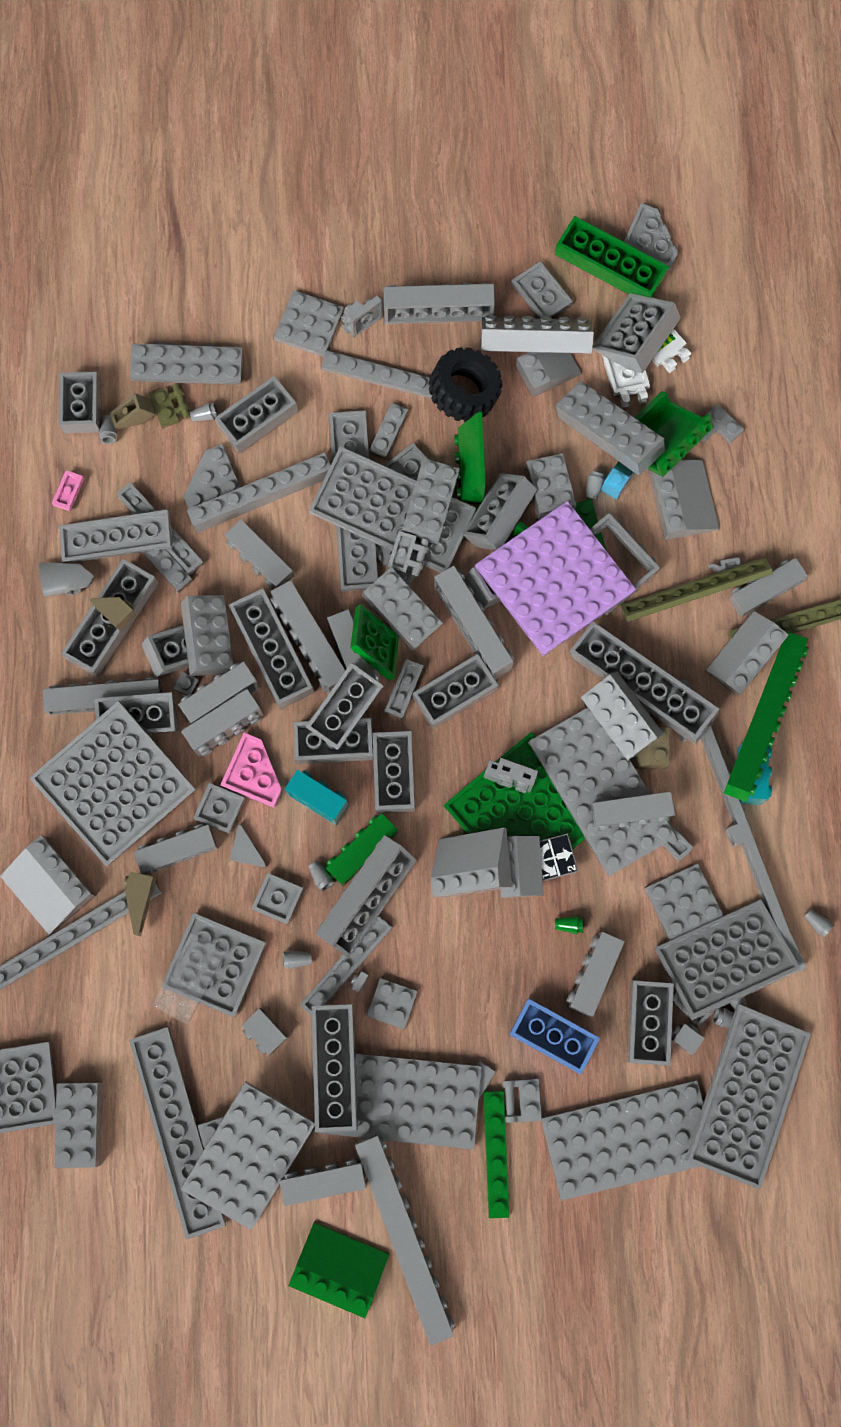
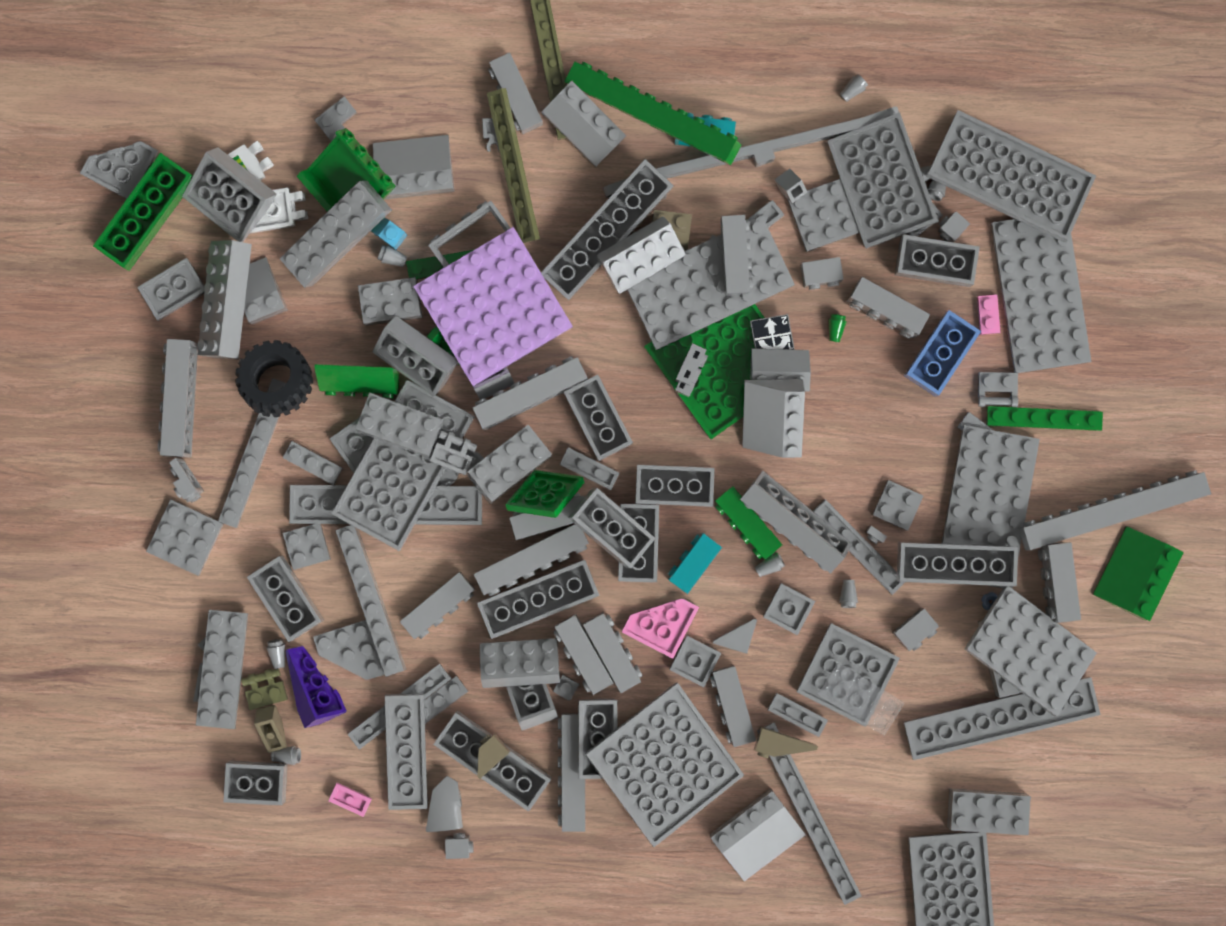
camera: 85 degrees left, 10 degrees up
(25, 593) = (458, 846): none -> light grey brick
(168, 448) = (313, 694): none -> dark purple wedge
(170, 916) = (797, 714): none -> light grey plate
(300, 1105) = (985, 599): none -> sand blue plate
(308, 432) = (306, 546): none -> light grey plate
(599, 1084) = (988, 314): none -> bright pink plate
(624, 904) = (821, 273): none -> light grey brick
(710, 864) = (790, 185): none -> light grey brick

